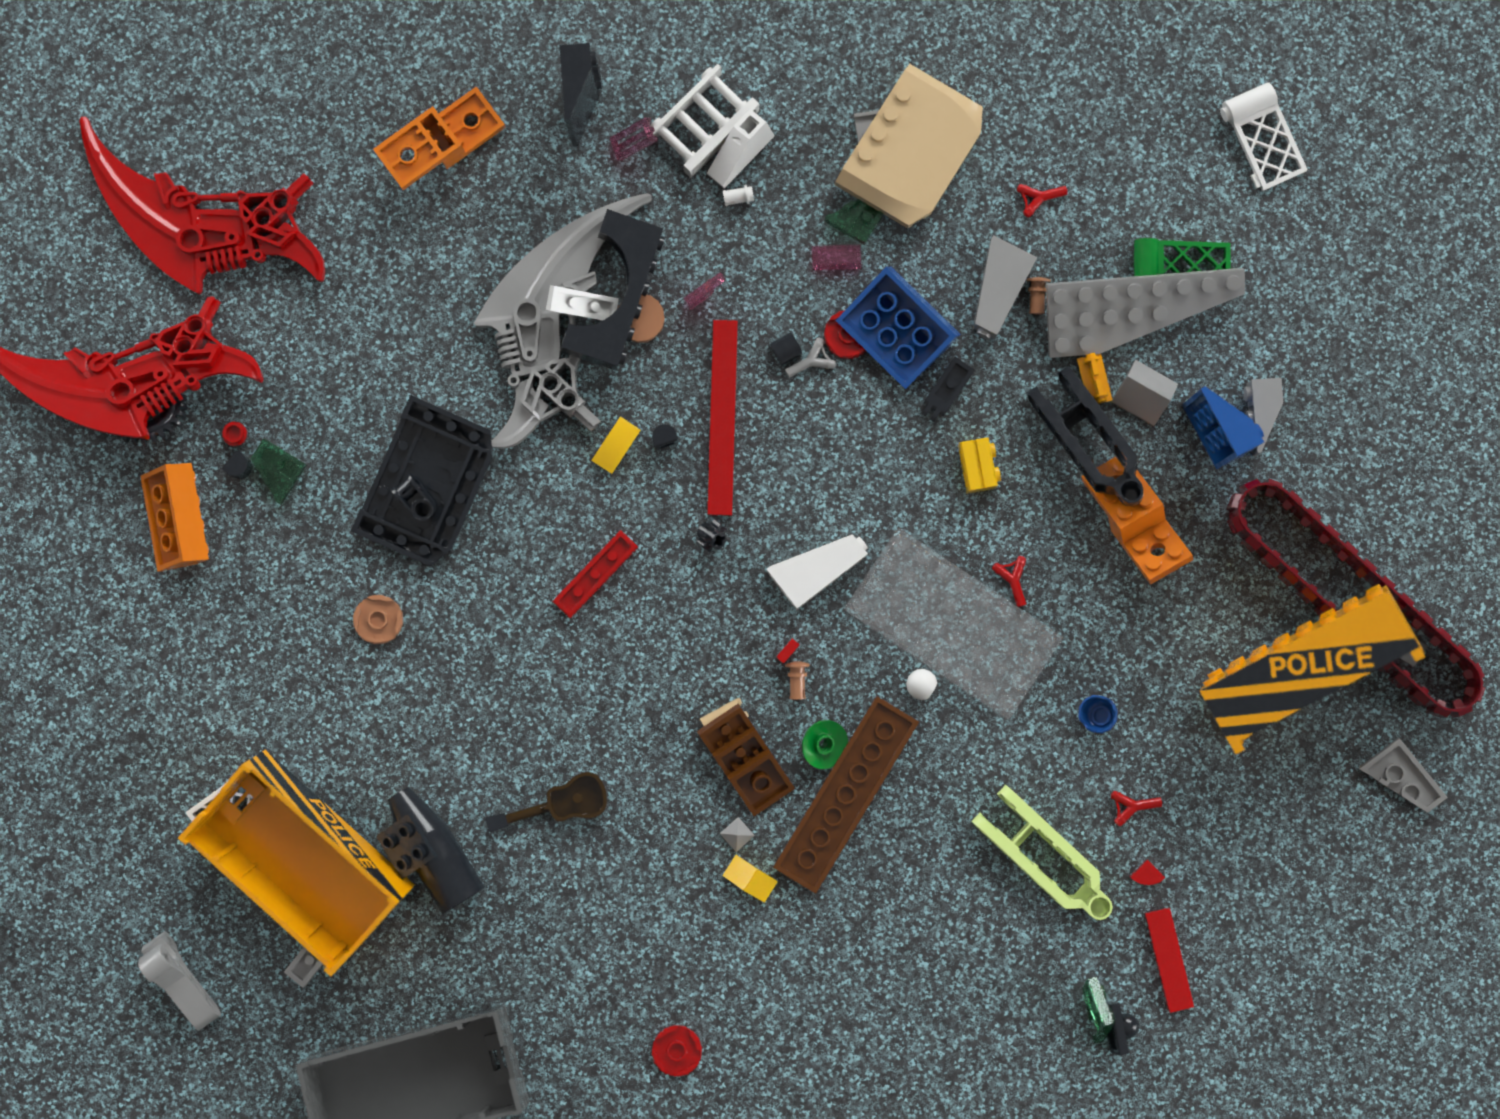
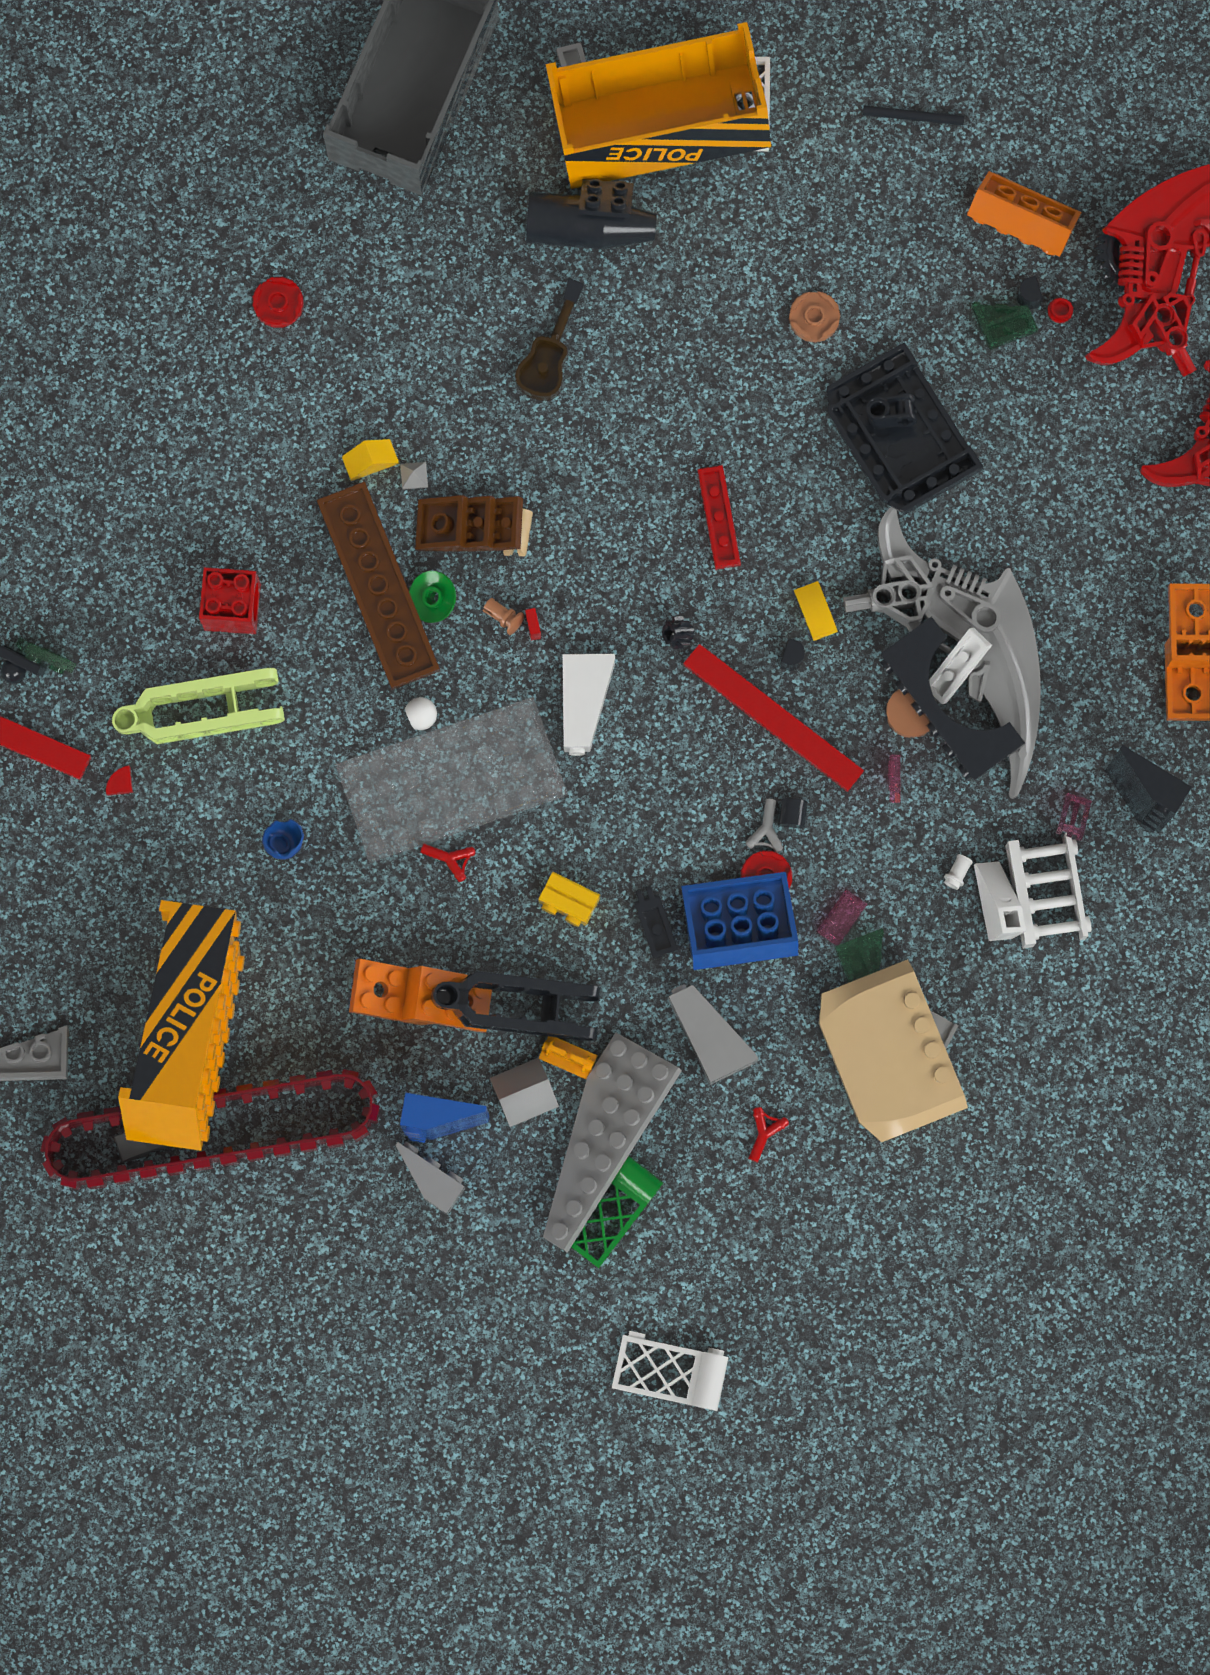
camera: 125 degrees right, 5 degrees down
(153, 663) = (913, 115): none -> black bar
(948, 897) = (229, 600): none -> red brick
(1037, 294) = (672, 1056): nougat pin -> none
(1132, 806) = (185, 813): red piece -> none

